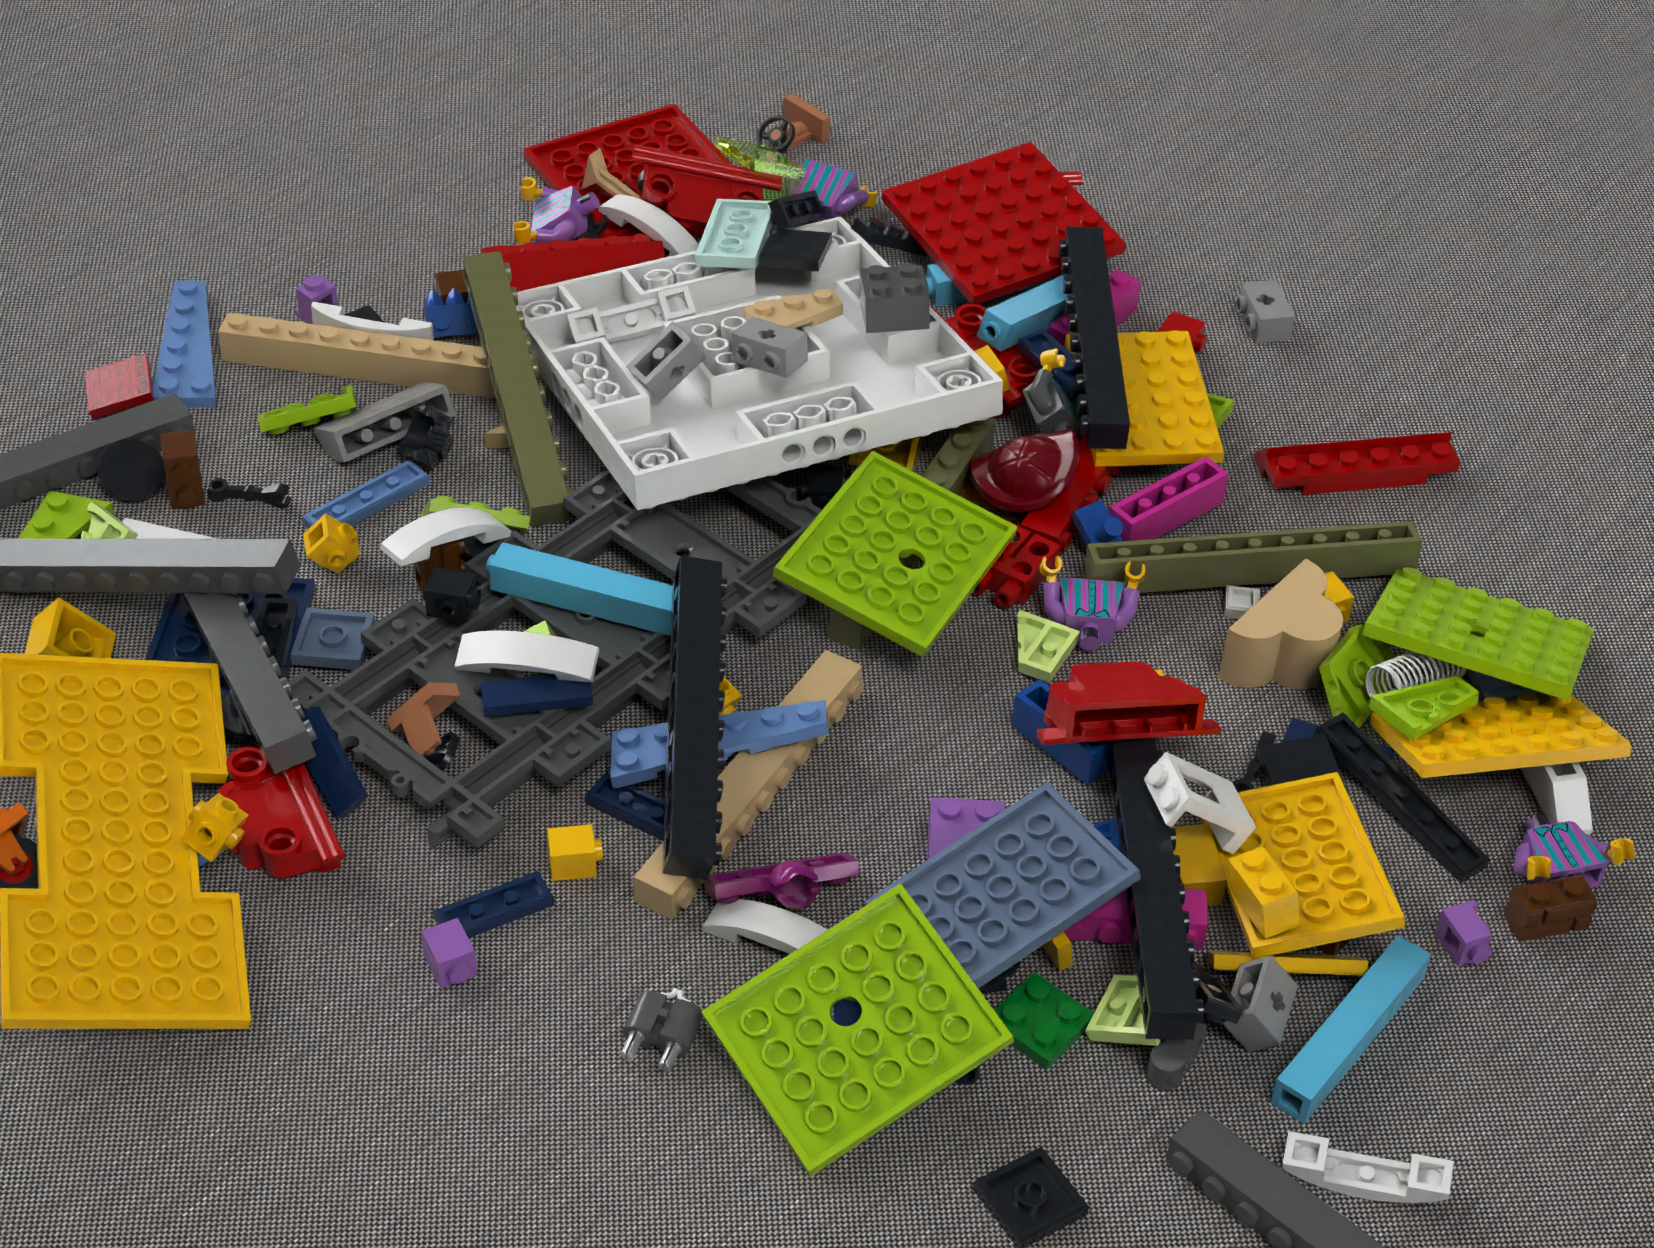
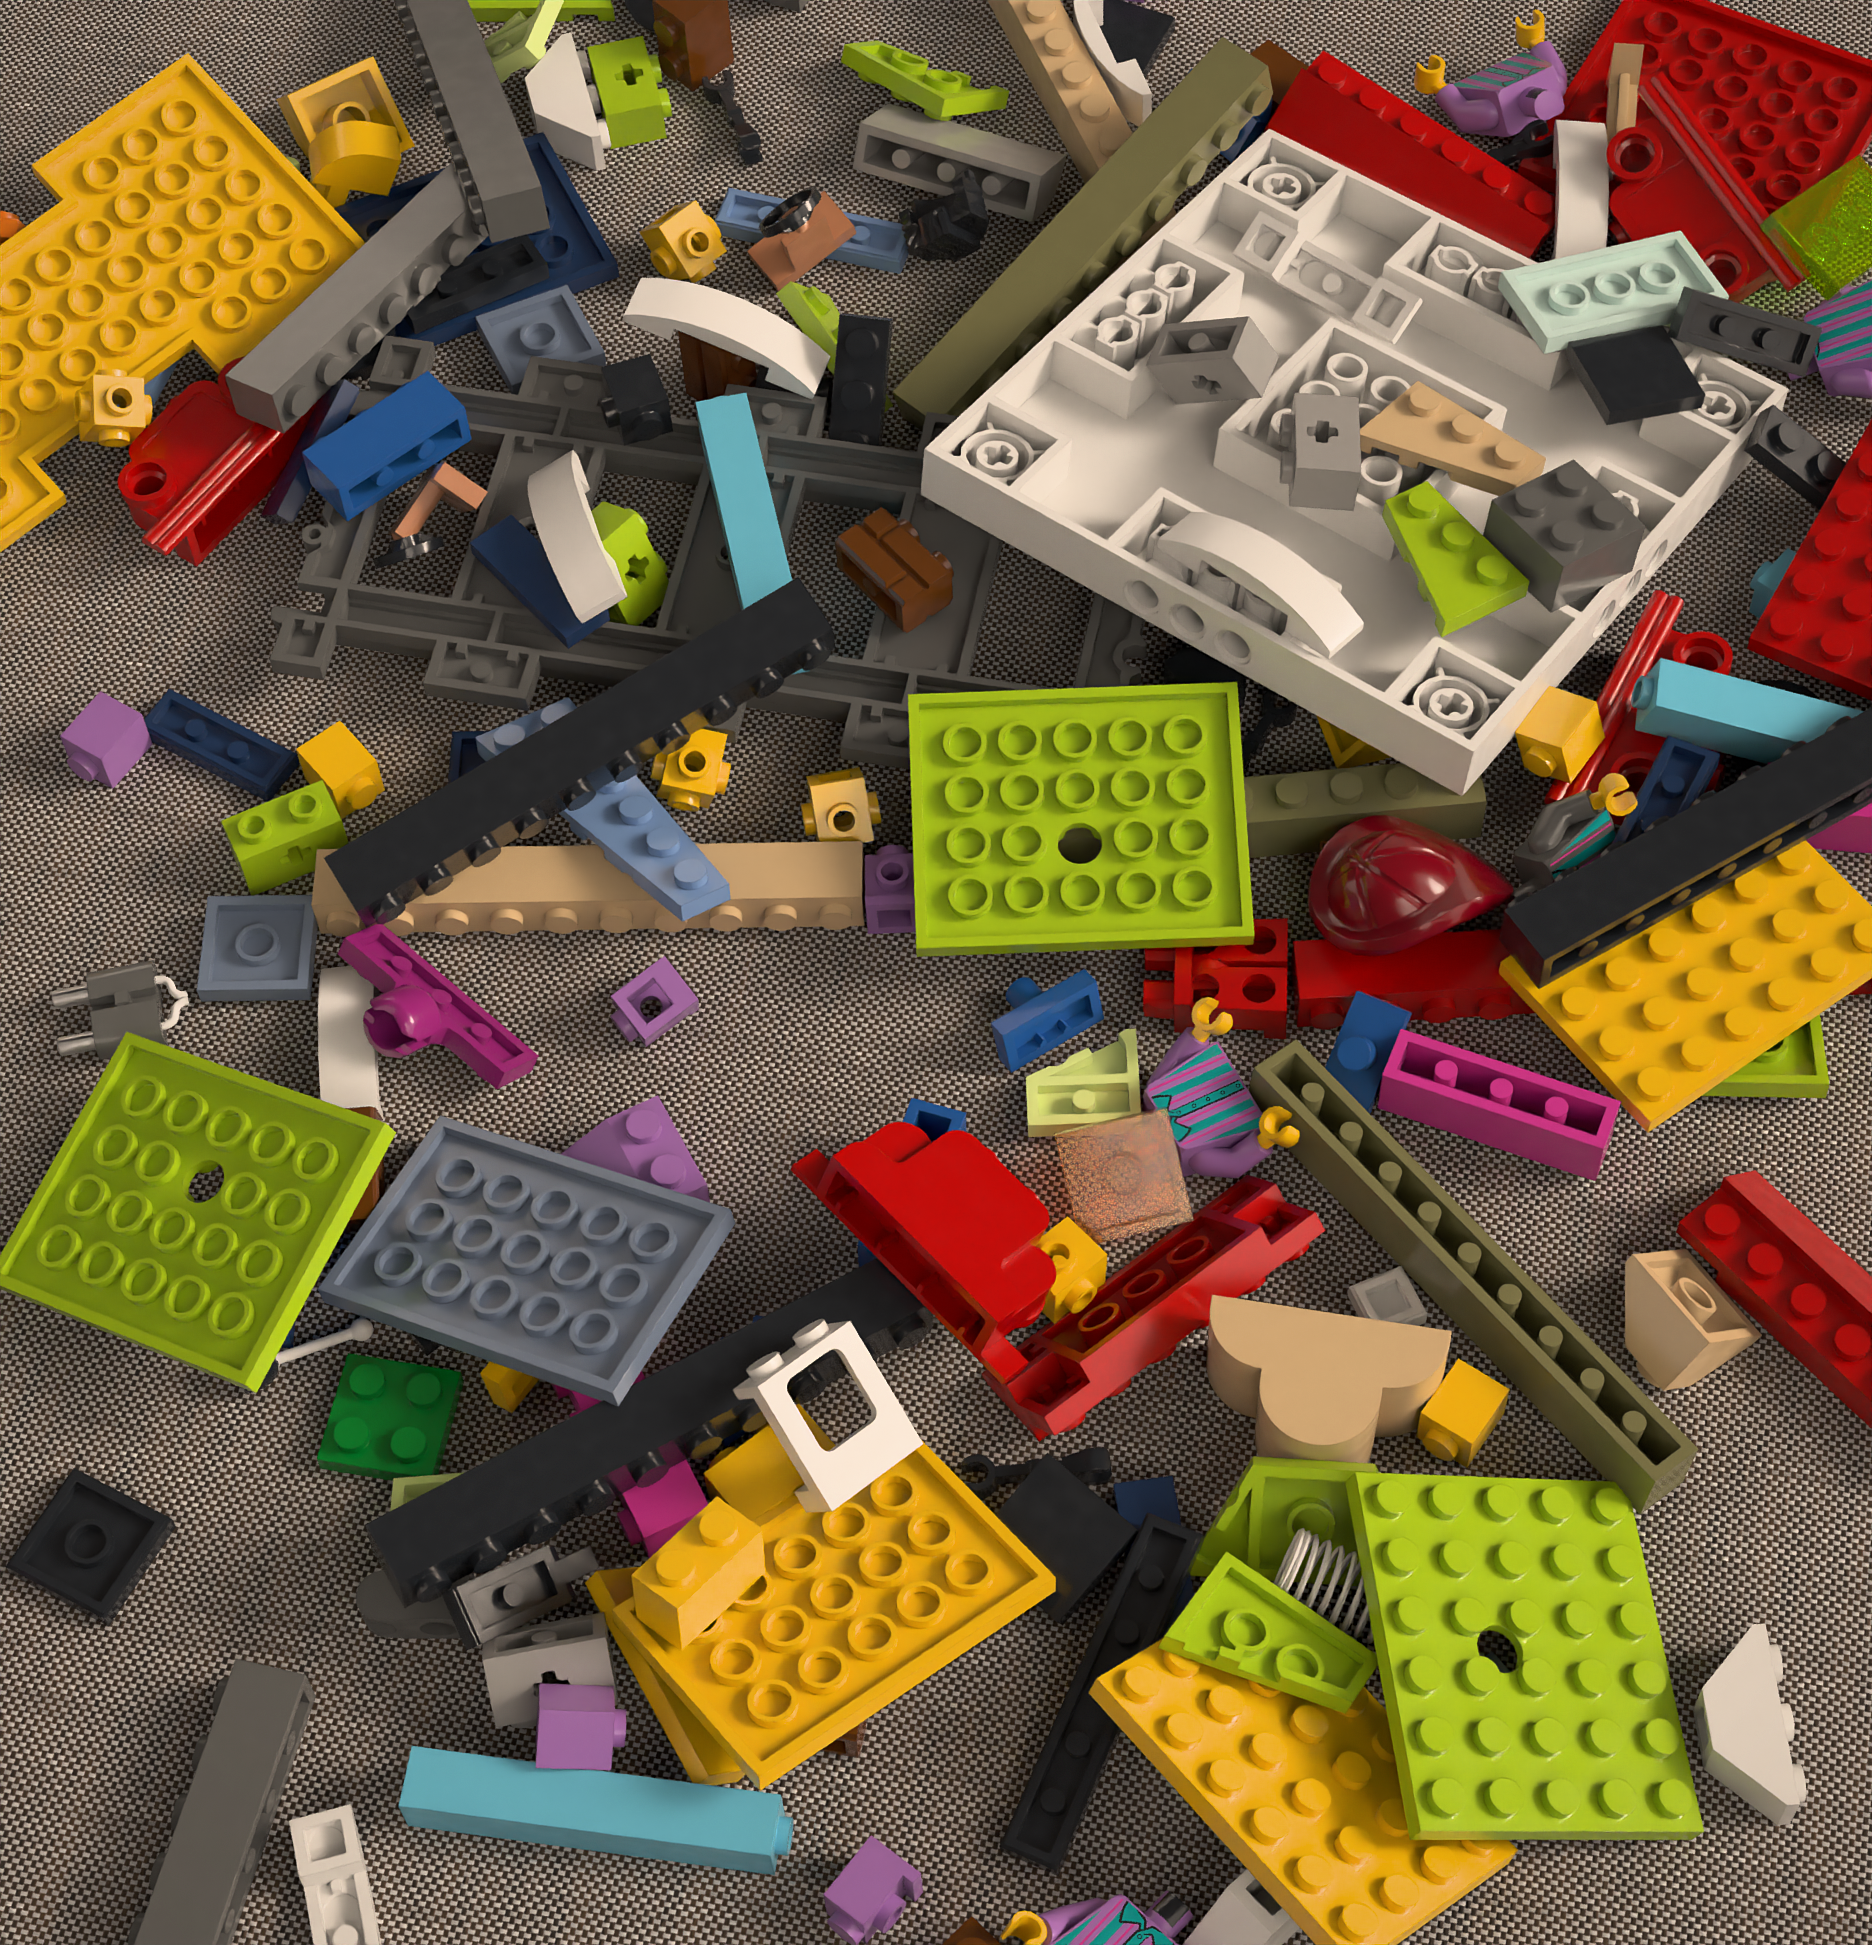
camera: 65 degrees right, 15 degrees up
(127, 637) = (354, 157): none -> yellow brick
(188, 515) = (629, 91): none -> lime brick
(375, 712) = (387, 445): none -> blue brick
(380, 495) = (800, 237): none -> nougat piece
(519, 505) = (860, 379): none -> black plate
(602, 895) = (283, 836): none -> lime brick
(661, 545) = (895, 569): none -> reddish brown brick
(667, 944) = (257, 948): none -> sand blue plate
(791, 652) = (839, 792): none -> yellow brick
(831, 389) = (1269, 570): none -> white slope
(852, 790) = (656, 983): none -> medium lavender brick
(863, 653) = (890, 891): none -> medium lavender brick
(881, 339) = (1451, 558): none -> lime wing
(982, 640) = (1044, 1018): none -> blue tile
(1109, 639) = (1124, 1175): none -> clear orange plate
(1185, 647) = (1154, 1304): none -> red slope
(1308, 1001) = (578, 1727): none -> medium lavender brick
(1326, 506) = (1679, 1319): none -> tan slope
(1551, 586) = (1748, 1729): none -> white slope

